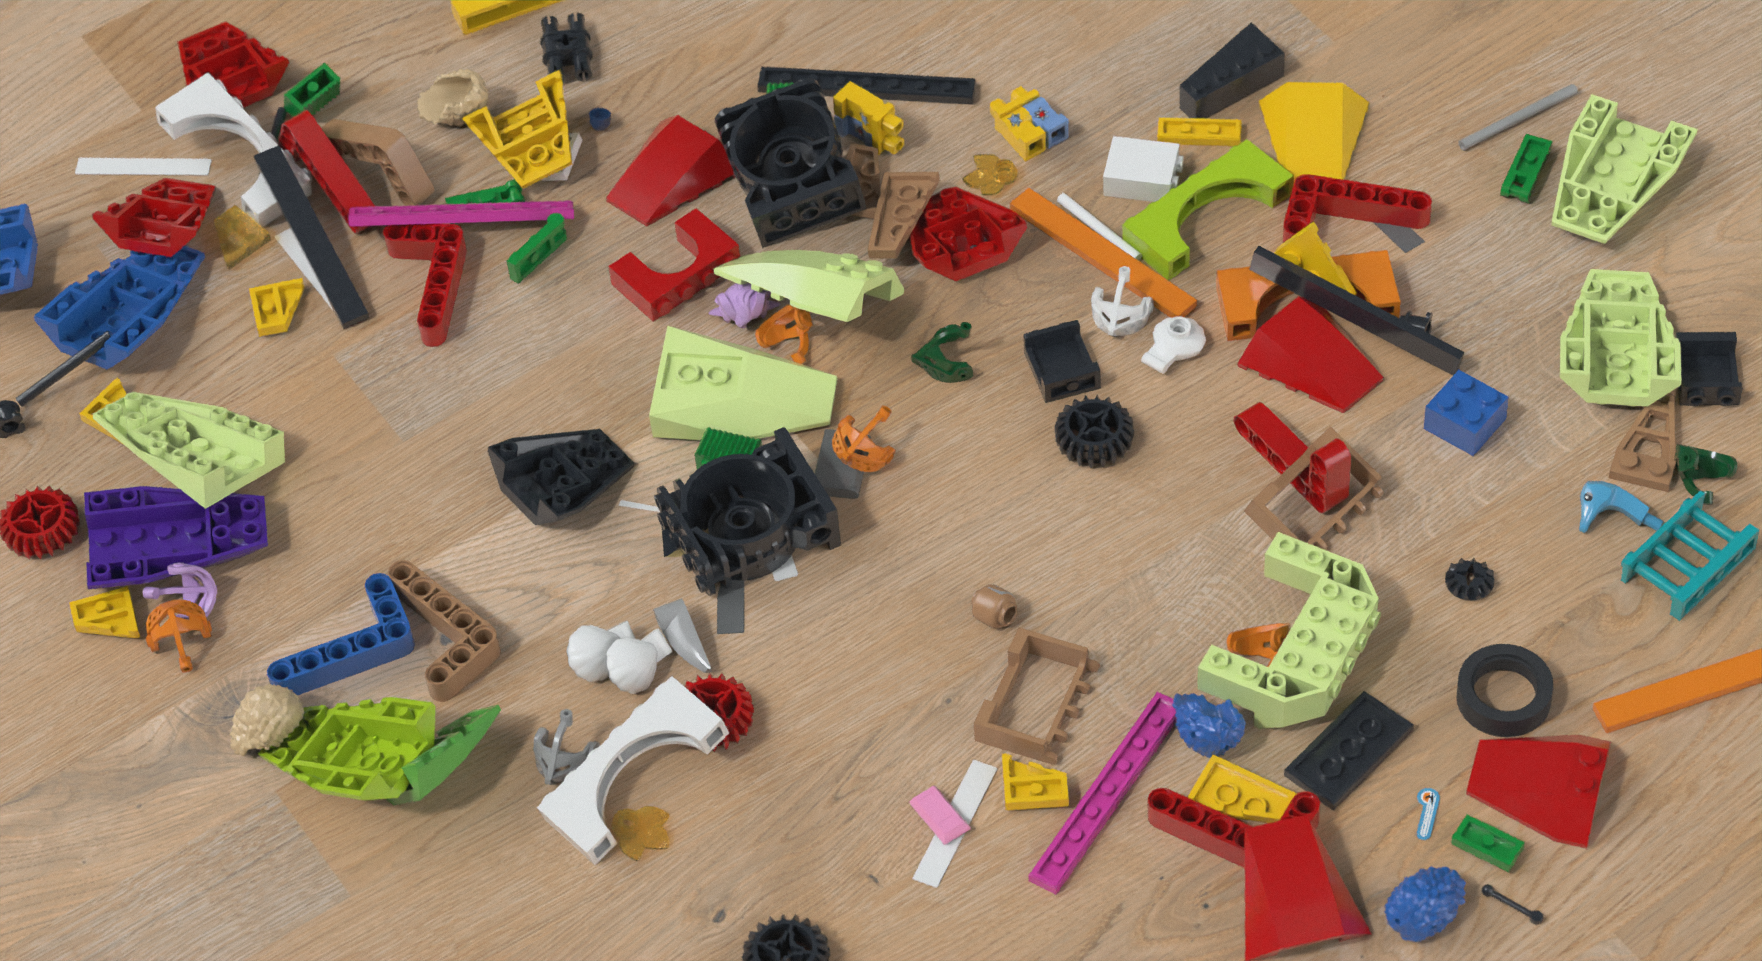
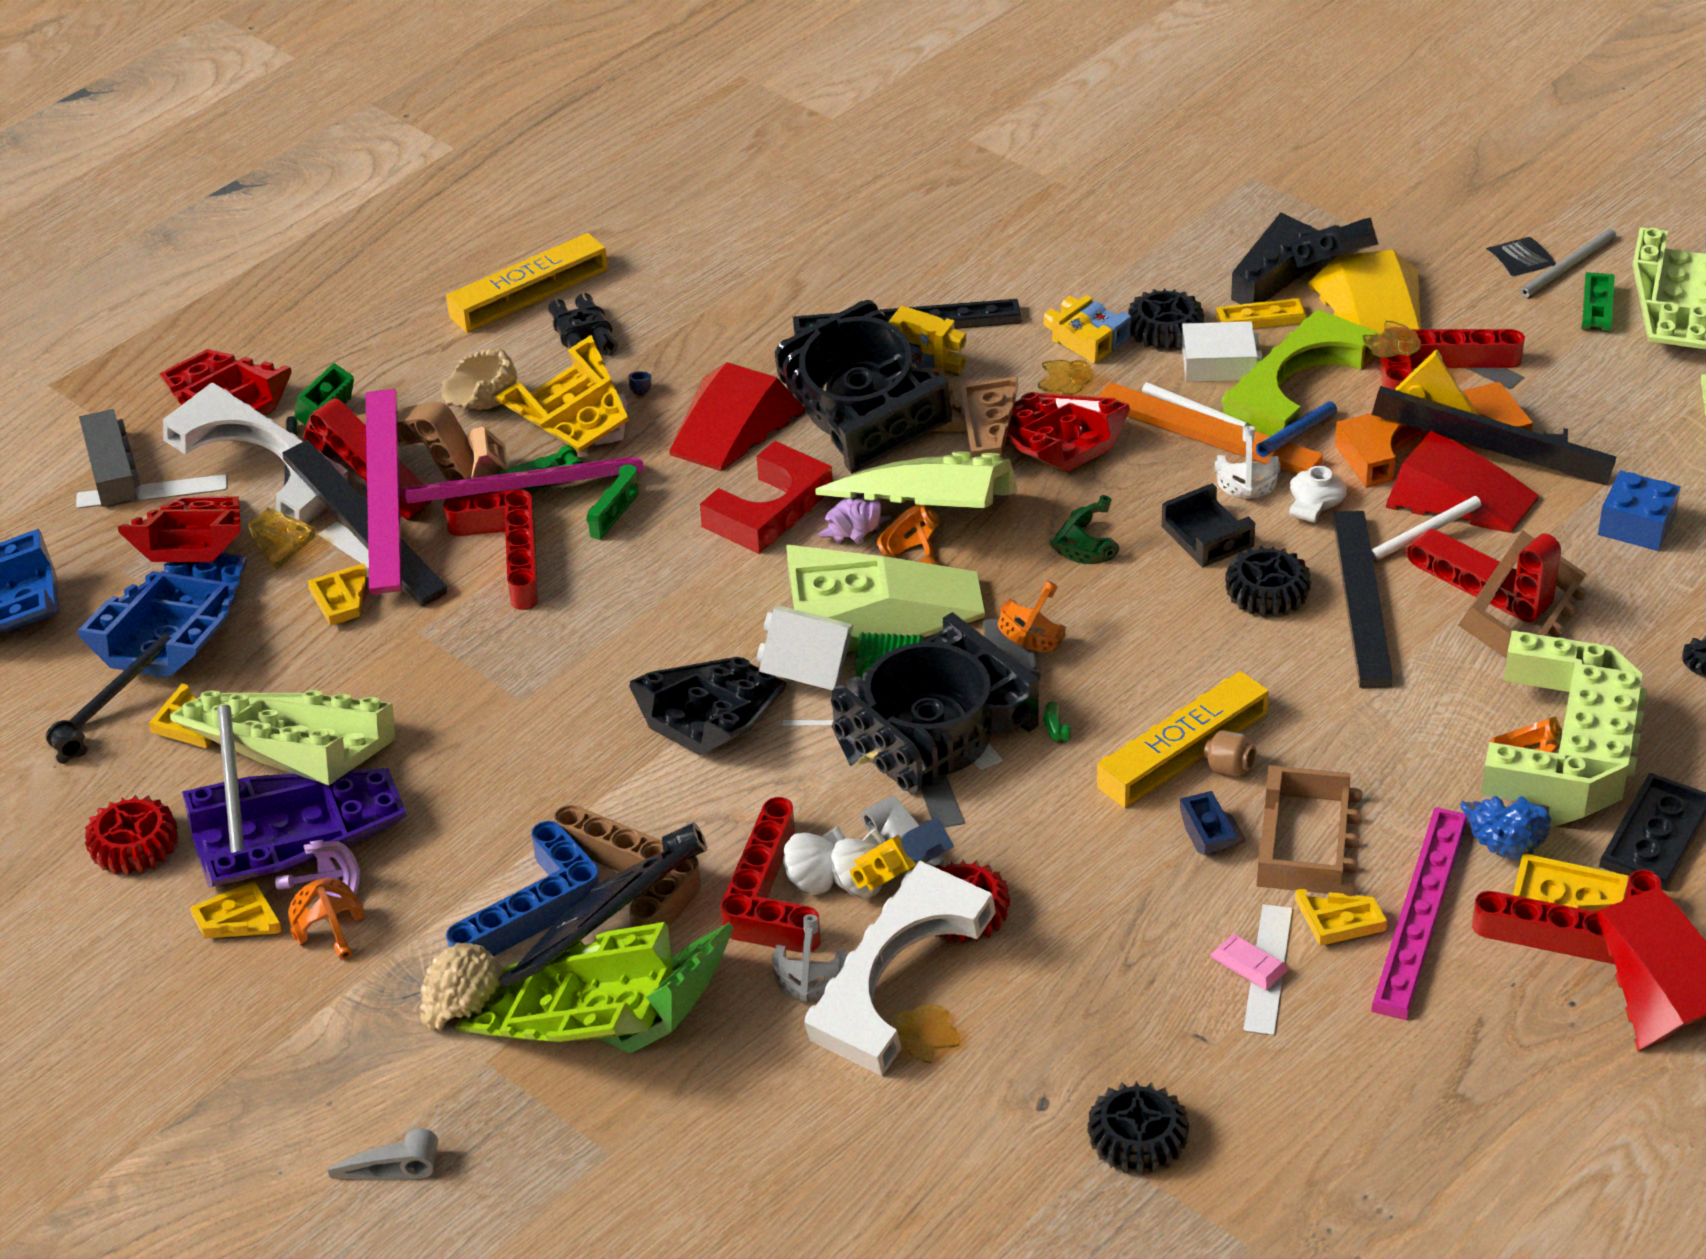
camera: 15 degrees left, 10 degrees down
(111, 127) = (110, 457): none -> dark grey brick
(124, 490) = (230, 778): none -> light grey piece
(173, 870) = (394, 1161): none -> light grey piece
(330, 211) = (383, 492): none -> dark pink tile
(405, 662) = (606, 900): none -> black wing
(437, 182) = (488, 453): none -> light nougat slope
(545, 656) = (746, 897): none -> red beam
(651, 436) = (804, 647): none -> white brick
(666, 661) = (901, 854): none -> hips
(850, 544) = (1051, 718): none -> green arm
(954, 583) = (1180, 739): none -> yellow brick
(954, 673) = (1208, 824): none -> dark blue slope
(1105, 116) = (1160, 315): none -> black gear
(1176, 462) = (1362, 600): none -> black tile
(1181, 269) = (1296, 429): none -> blue piece
(1264, 397) = (1433, 523): none -> white bar
(1294, 67) = (1333, 242): none -> black panel
(1301, 191) = (1394, 341): none -> clear yellow plate
(1477, 101) = (1522, 256): none -> black sticker

